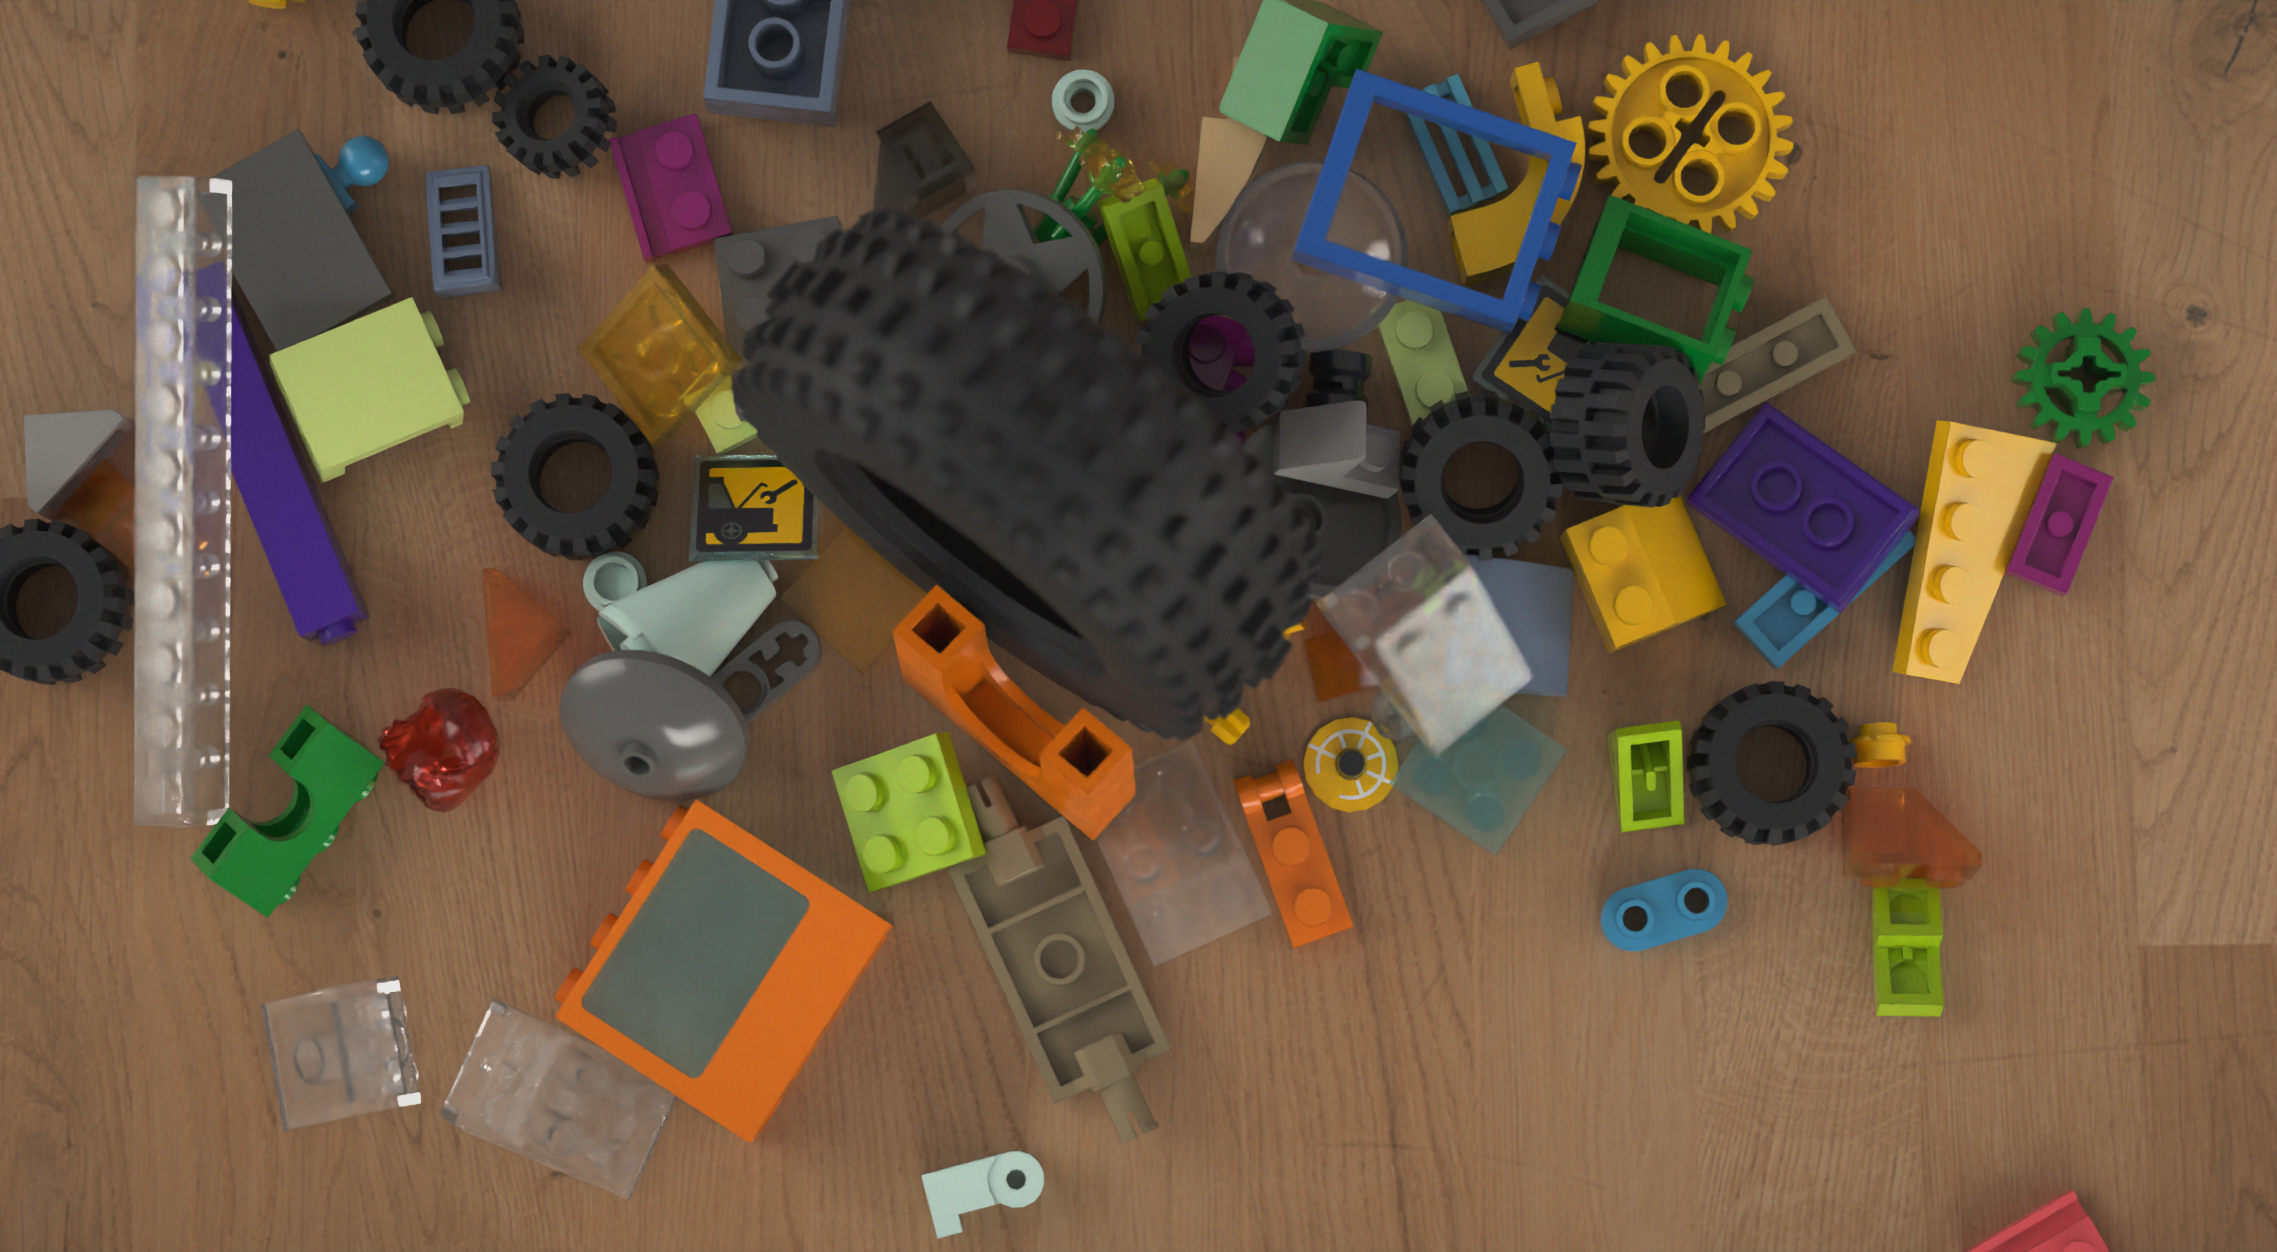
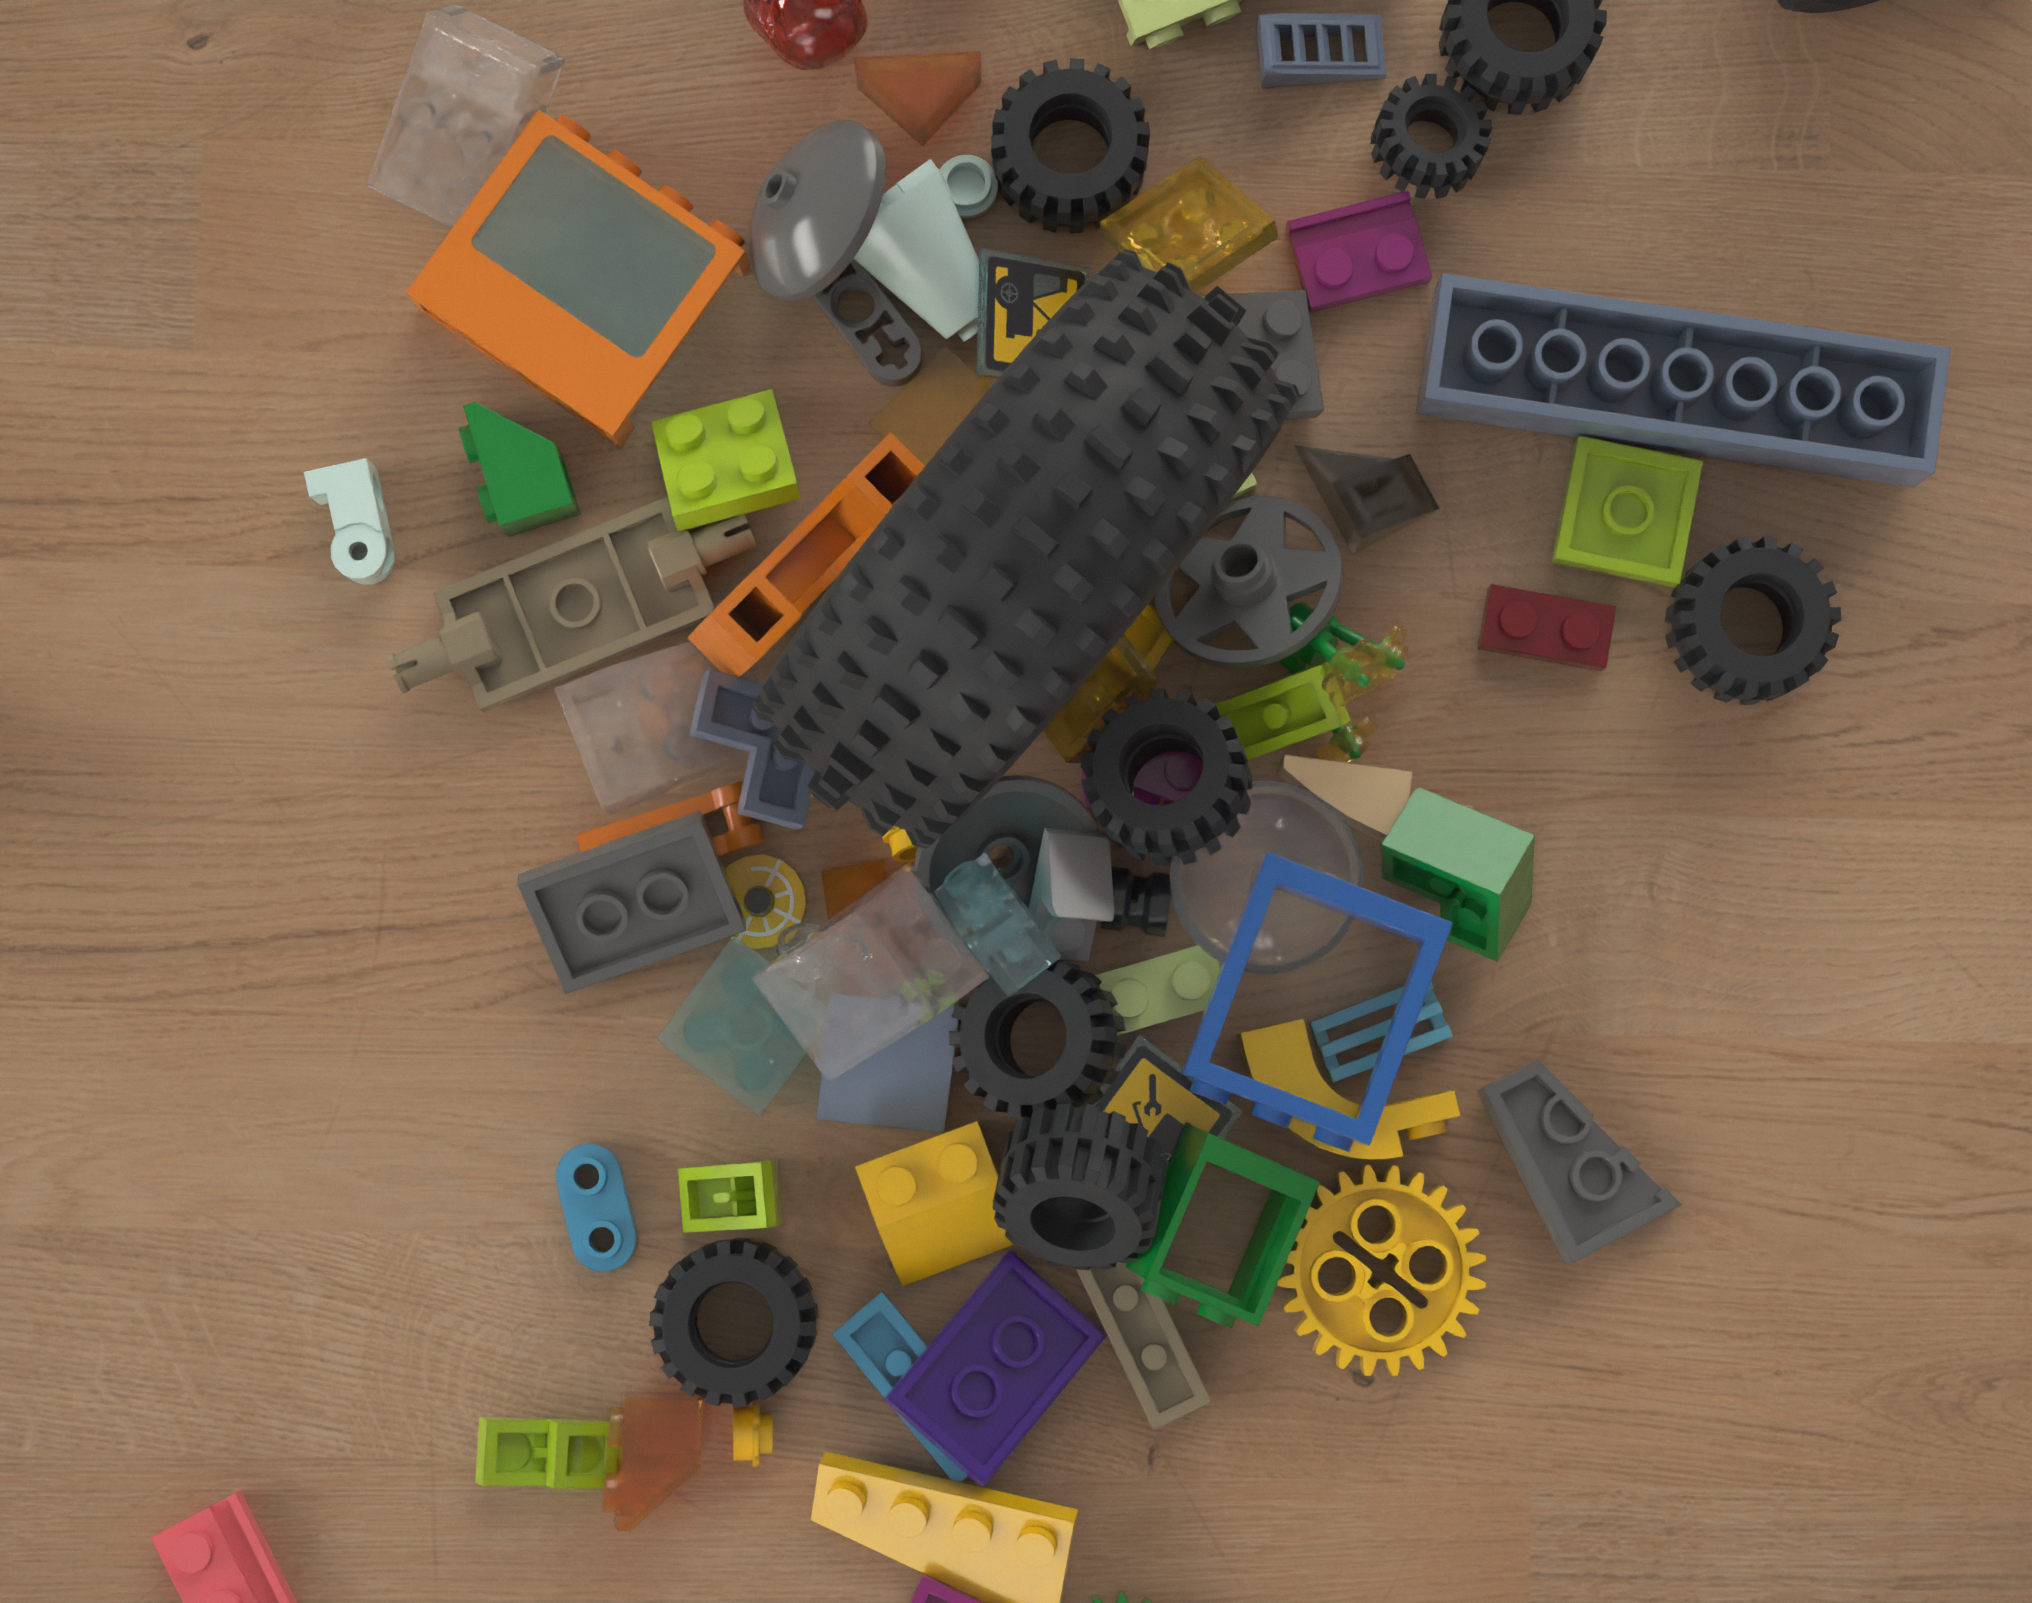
camera: 90 degrees right, 0 degrees up
(926, 1019) = (522, 472): none -> green slope
(1083, 82) = (1448, 645): light aqua plate -> none
(1175, 771) = (772, 785): none -> sand blue plate
(1361, 884) = (632, 902): none -> dark grey plate
(1376, 512) = (996, 923): none -> clear light blue brick

